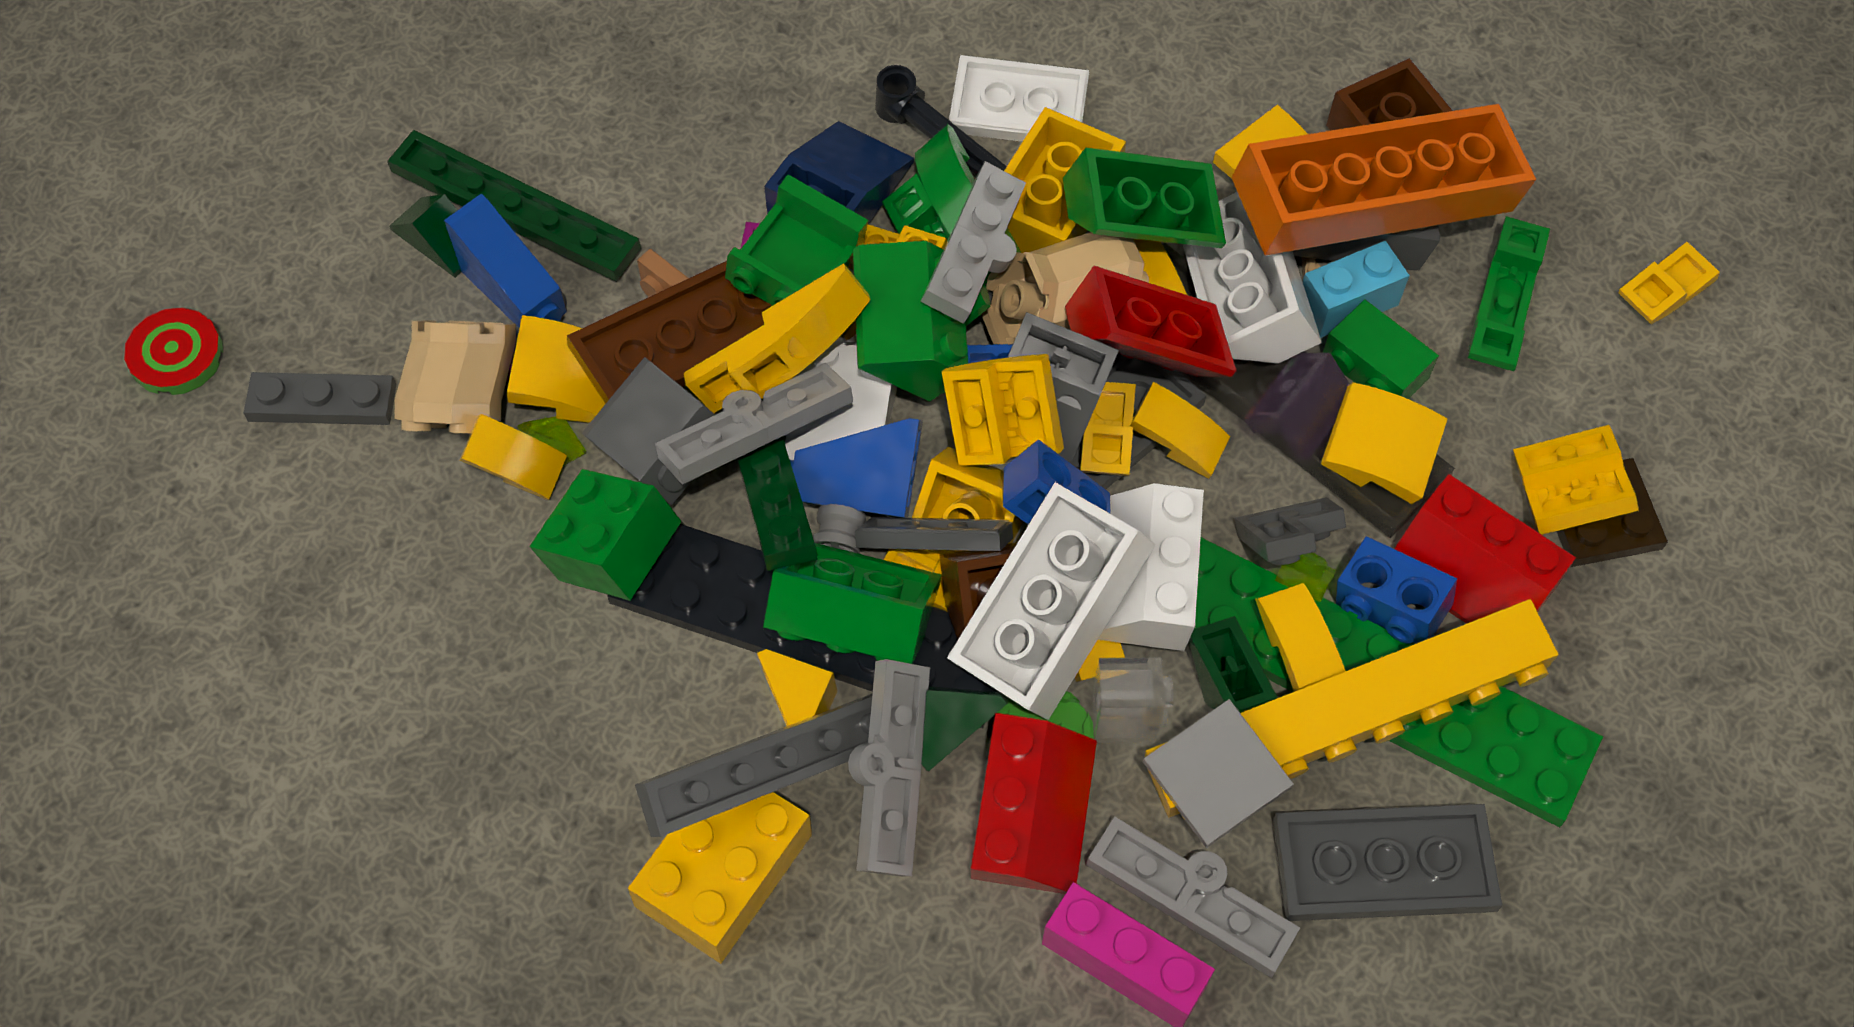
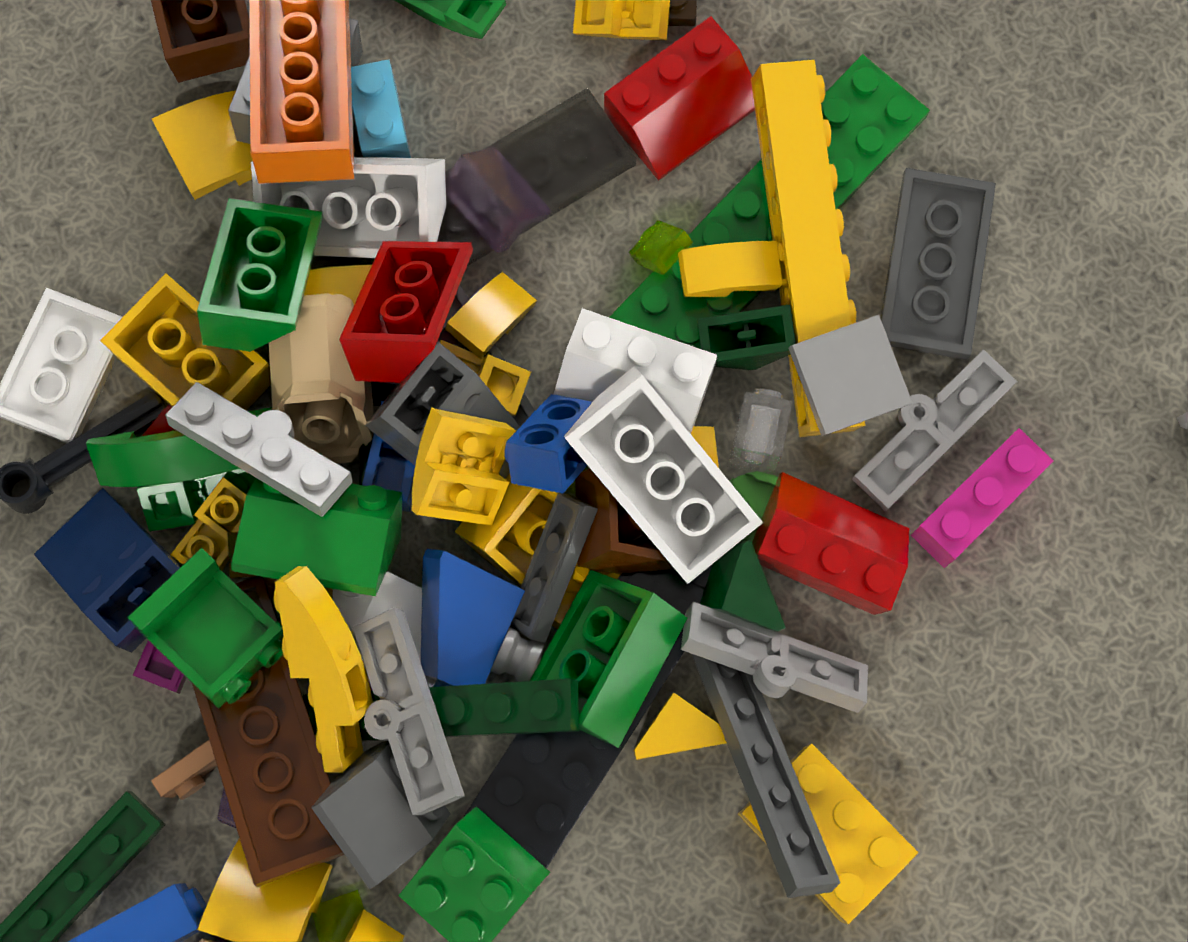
camera: 75 degrees left, 15 degrees up
(1291, 530) = (612, 253): dark grey plate -> none
(1380, 352) = (455, 114): green brick -> none
(1384, 441) = (552, 137): yellow slope -> none
(1401, 583) = (688, 169): blue brick -> none

